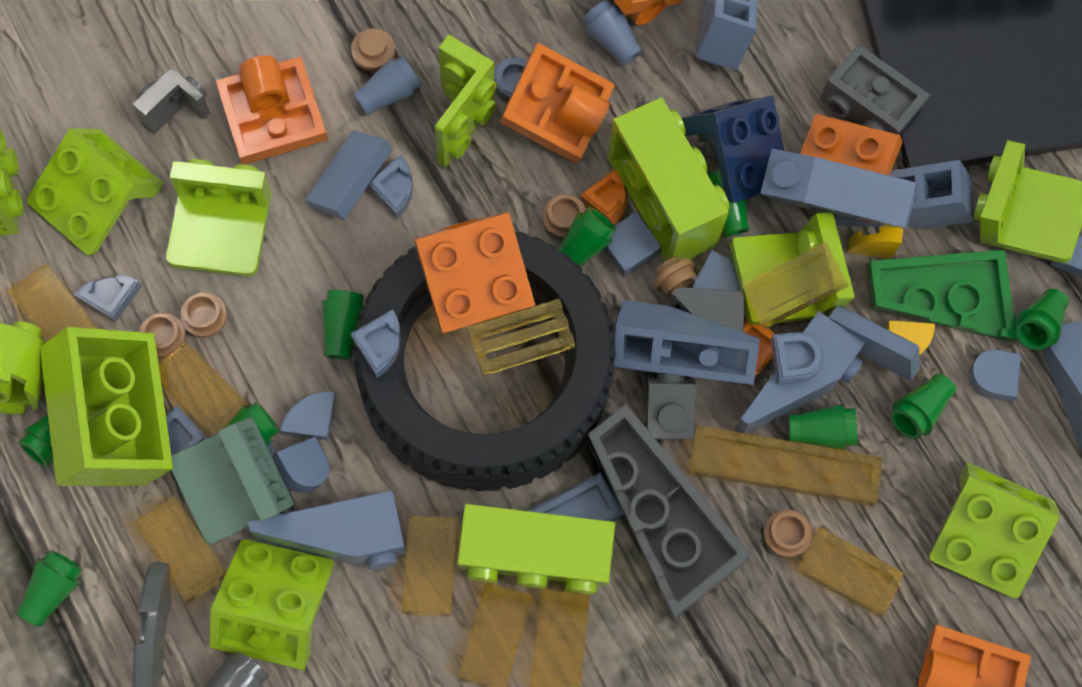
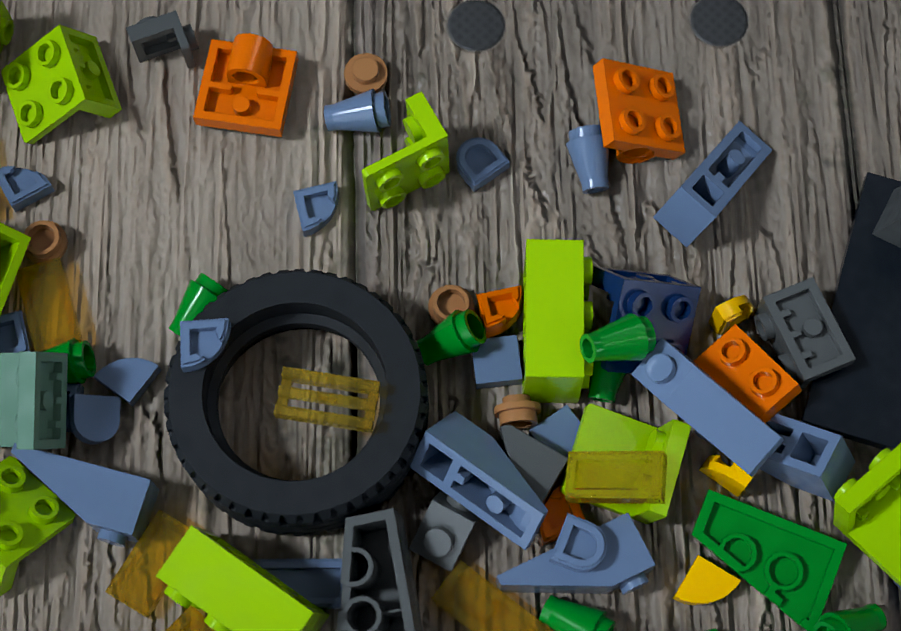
camera: 35 degrees right, 0 degrees up
(203, 314) = (88, 241): medium nougat plate -> none
(218, 217) = (146, 163): lime bracket -> none
(348, 174) = (280, 177): sand blue tile -> none
(474, 271) = (315, 319): orange plate -> none
(557, 103) = (499, 199): orange plate -> none
(742, 165) = (621, 340): none -> green cone
(803, 110) = (731, 313): none -> yellow tile
(880, 344) = (669, 571): sand blue tile -> none

